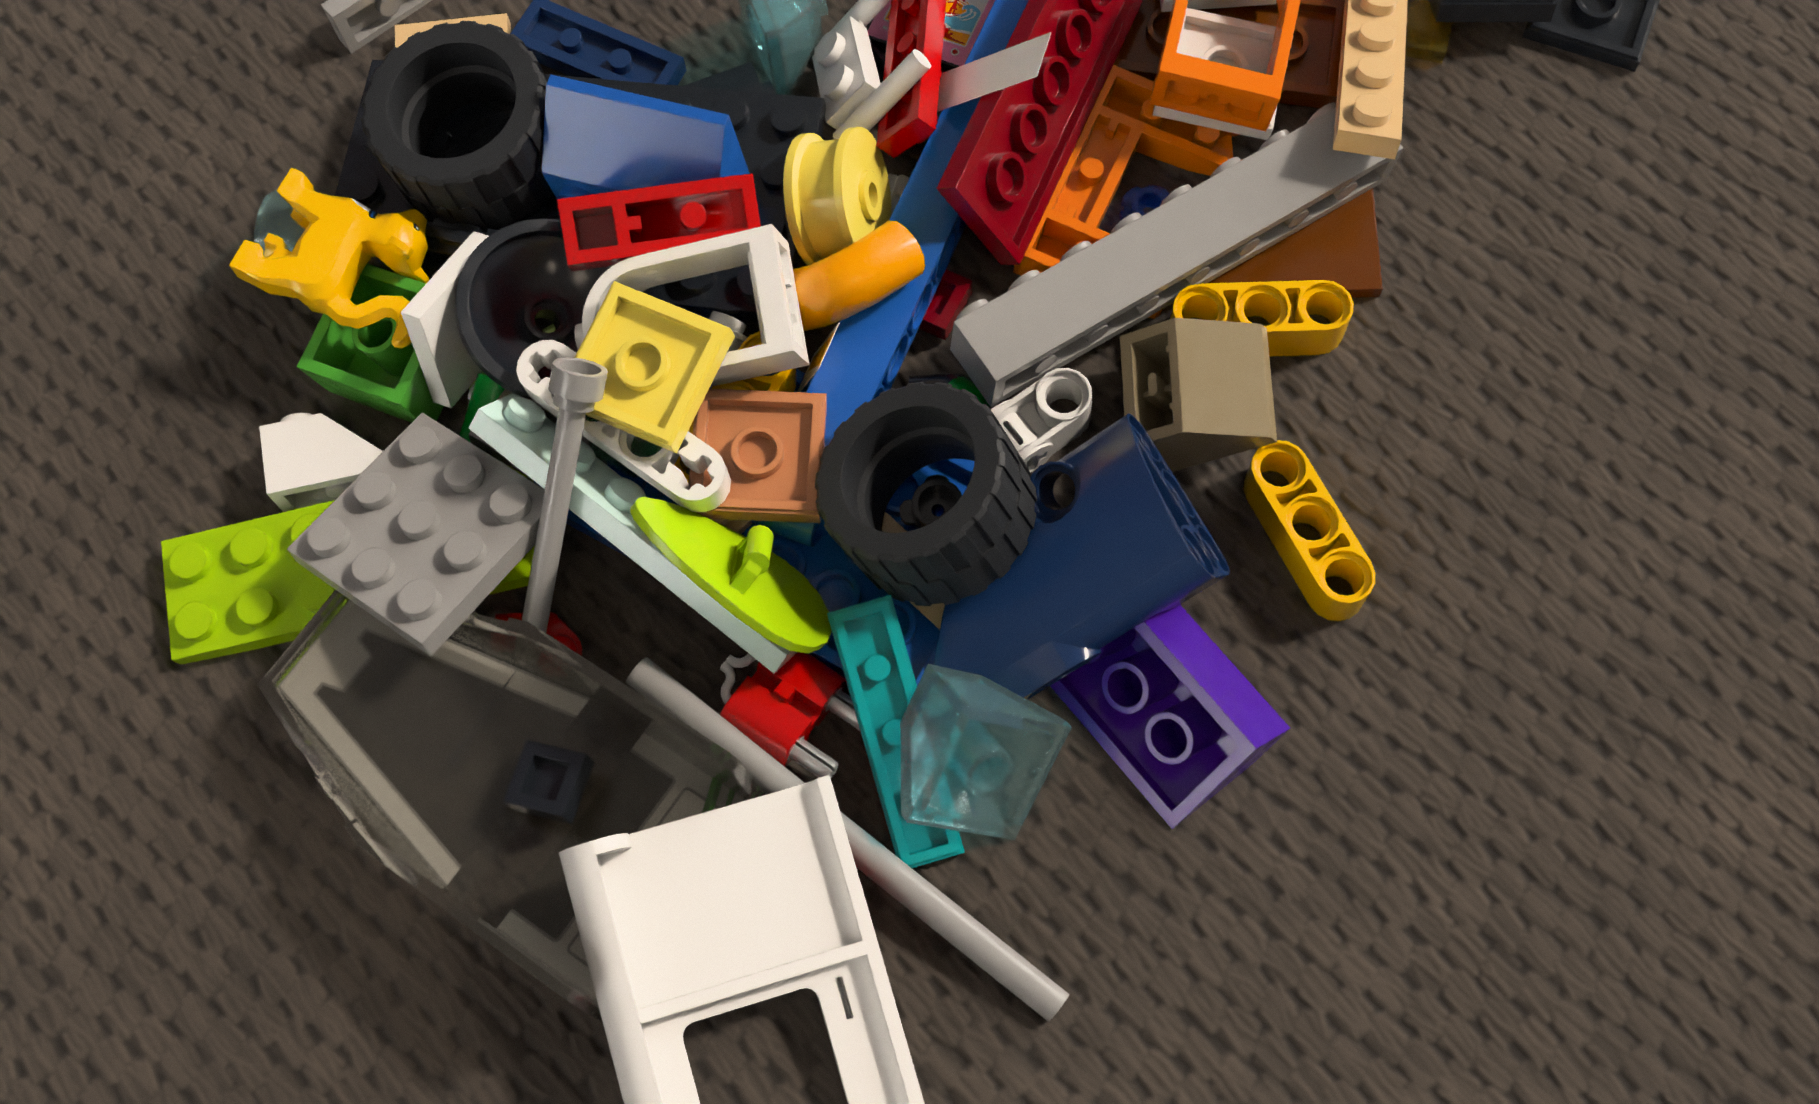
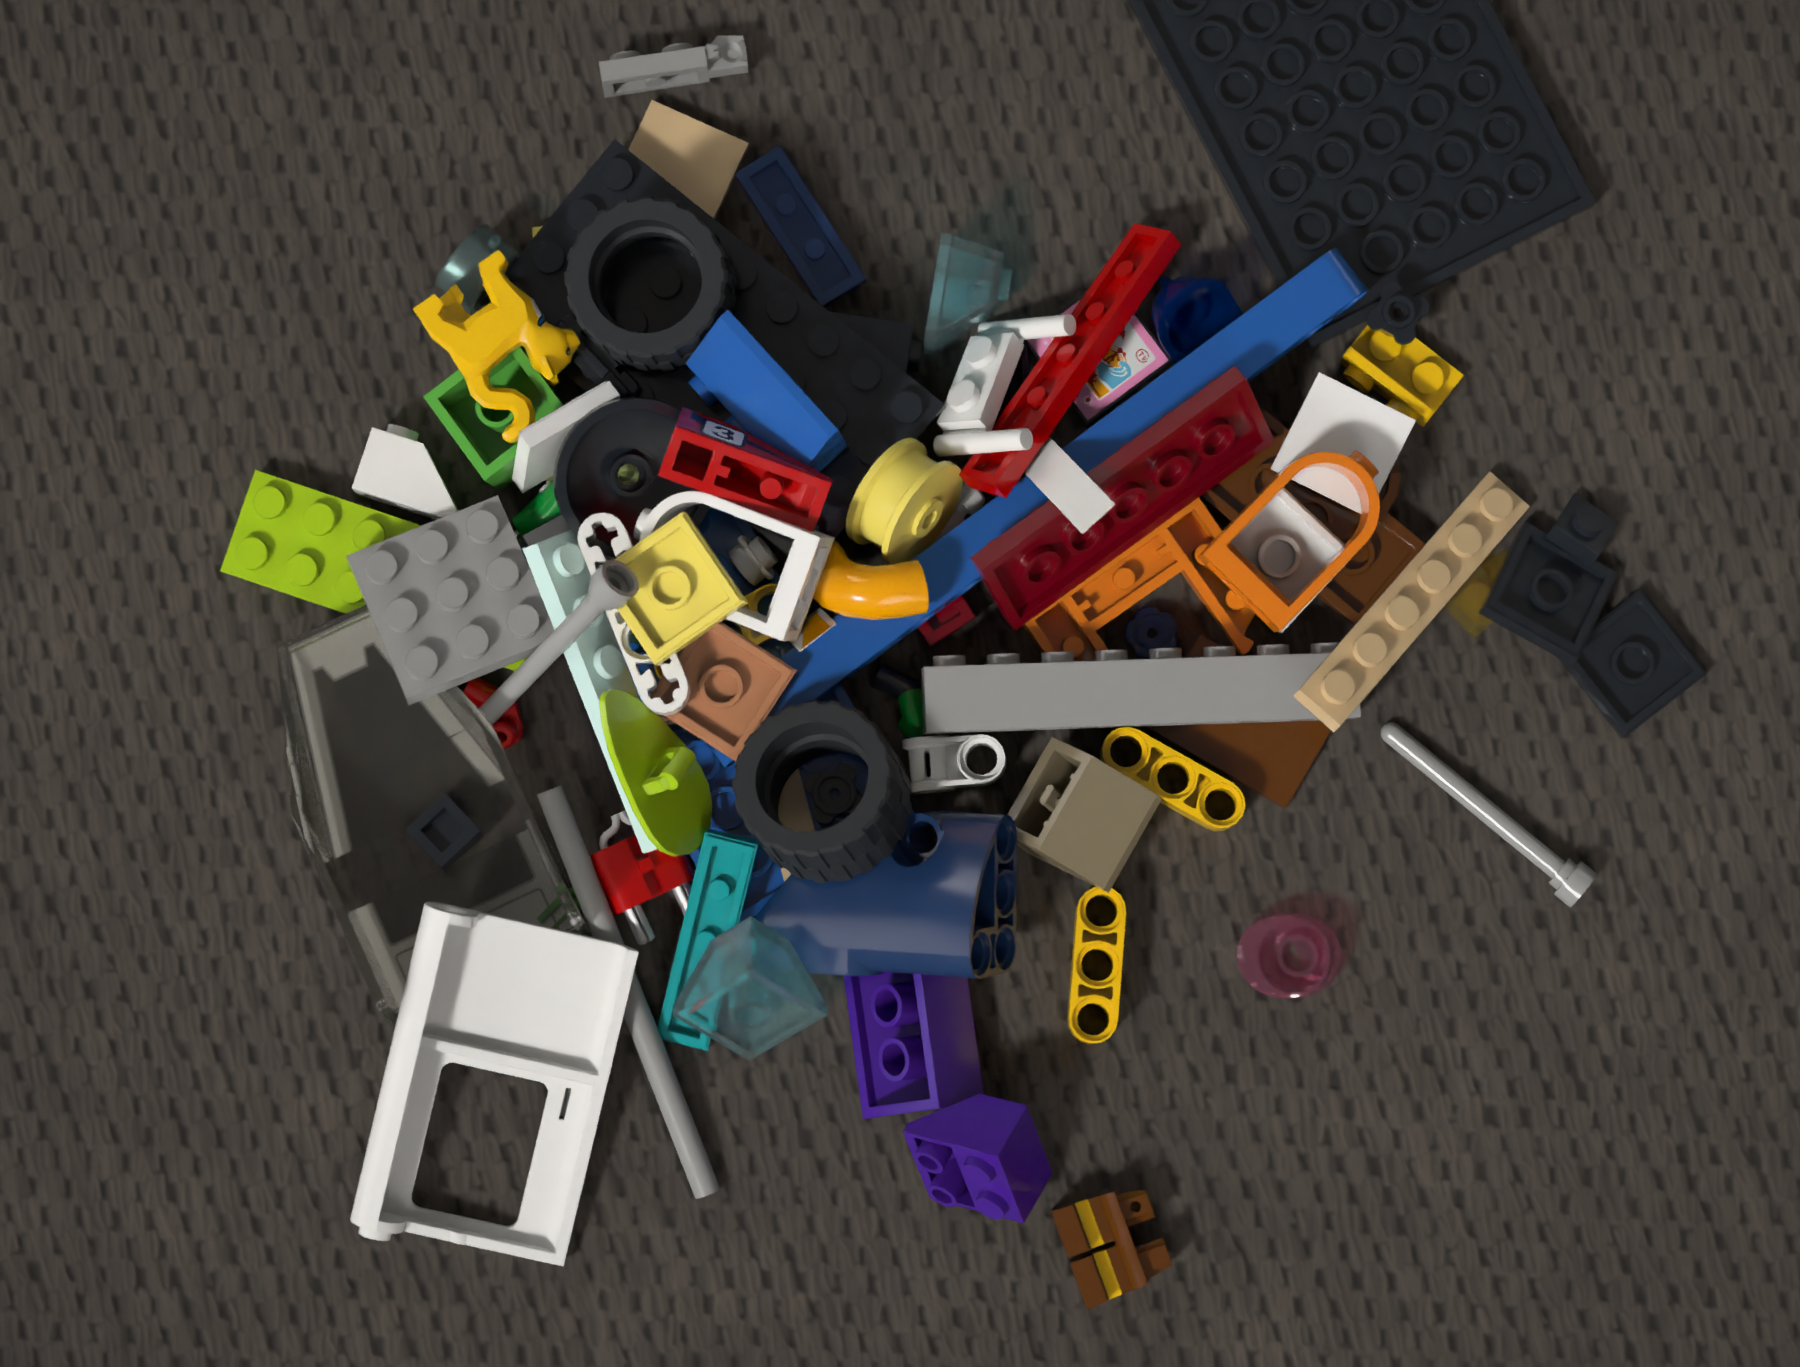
camera: 25 degrees right, 15 degrees up
(1327, 781) = (981, 1157): none -> dark purple slope
(1496, 393) = (1264, 959): none -> clear pink hat
(1545, 810) = (1117, 1267): none -> reddish brown hips
(1688, 204) = (1567, 877): none -> light grey piece

